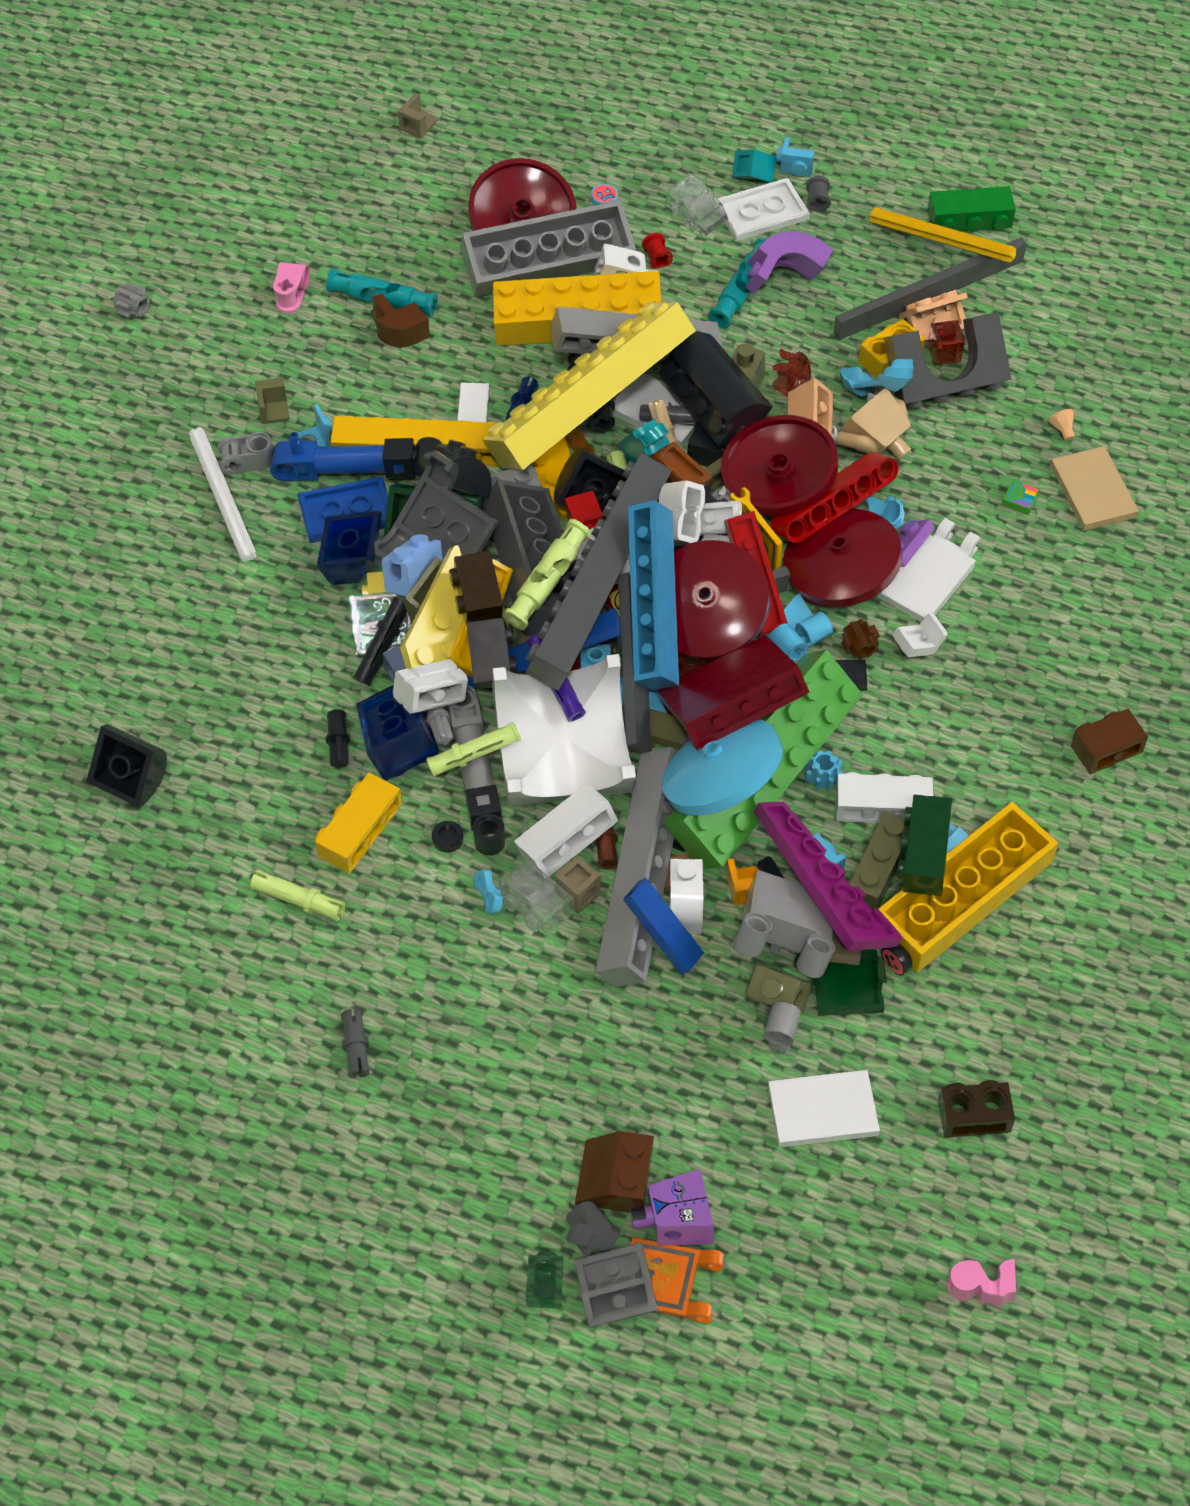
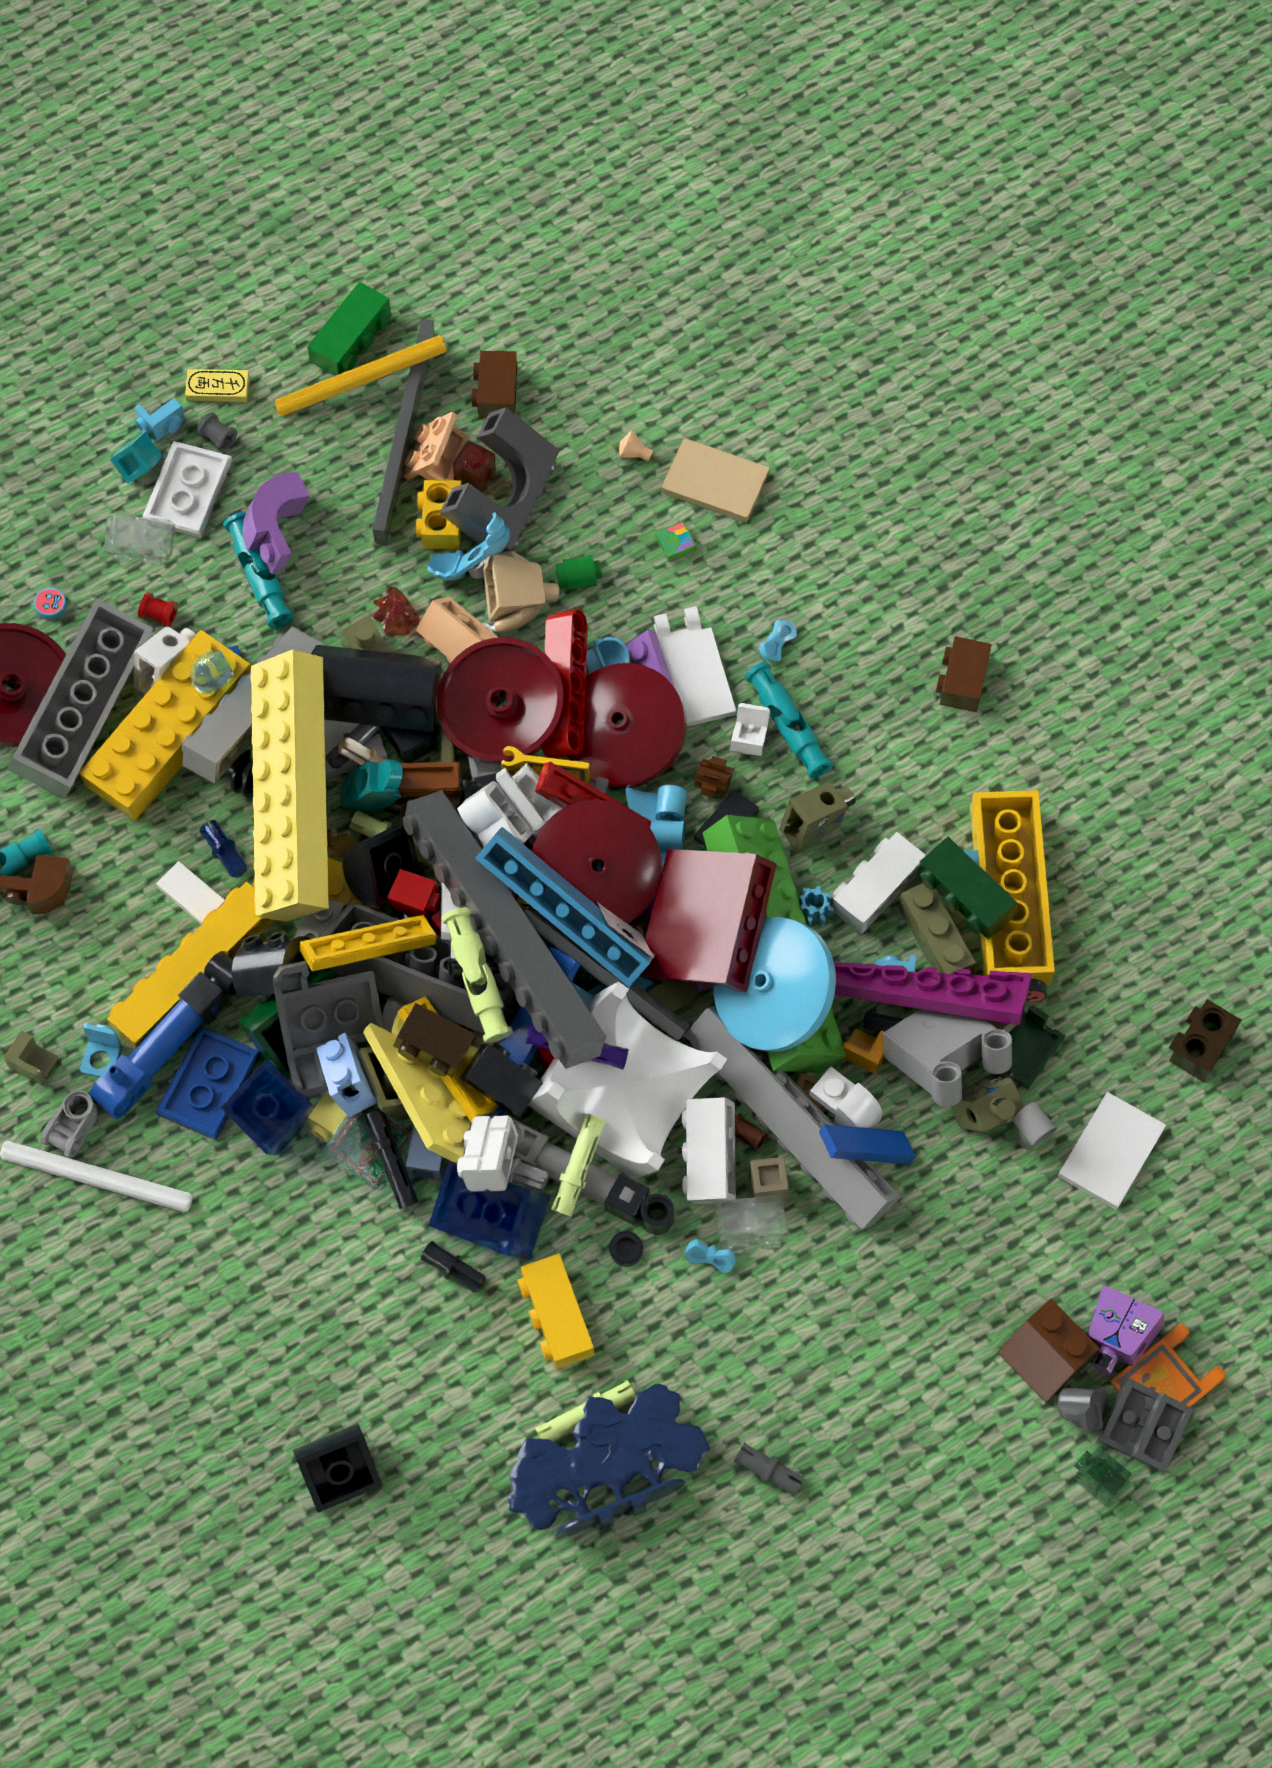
camera: 50 degrees left, 10 degrees up
(275, 926) = (609, 1453): none -> dark blue plant
(514, 504) = (367, 943): none -> yellow tile
(631, 291) = (210, 672): none -> clear light blue piece
(675, 648) = (625, 930): none -> white sticker
(708, 512) = (520, 799): none -> white tile
(853, 173) = (217, 385): none -> light yellow tile
(895, 719) = (815, 814): none -> olive torso
(932, 455) = (578, 572): none -> green brick
(959, 641) = (786, 717): none -> teal piece
(1020, 606) = (783, 631): none -> medium azure piece
(1024, 313) = (496, 382): none -> reddish brown brick

